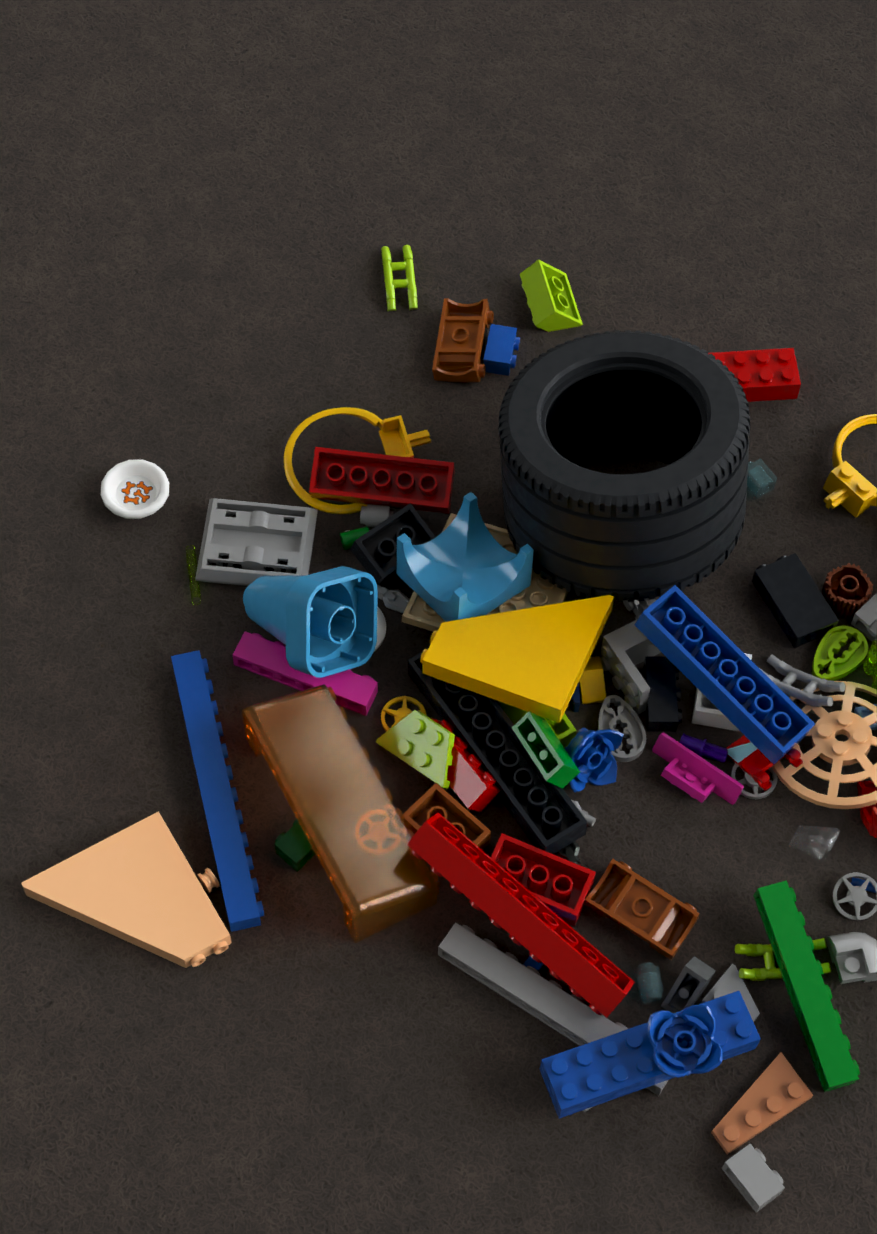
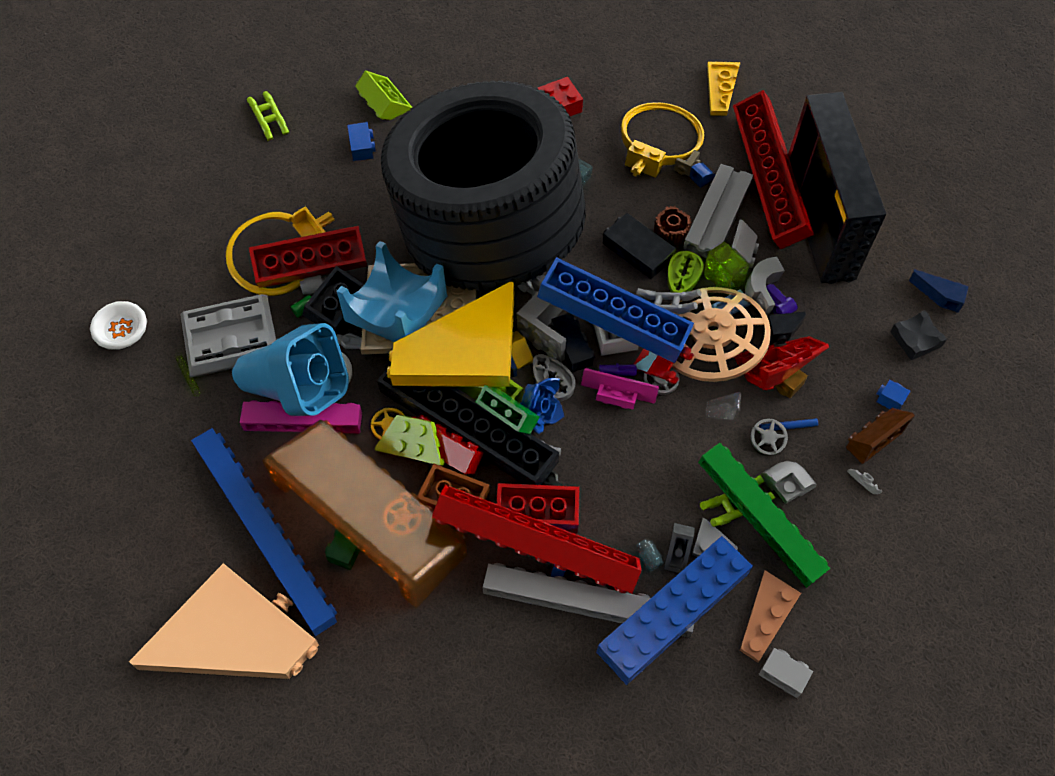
camera: 20 degrees left, 0 degrees up
(461, 341) = (330, 144): dark orange piece -> none
(642, 908) = (622, 501): dark orange piece -> none
(693, 1025) = (707, 576): blue brick -> none

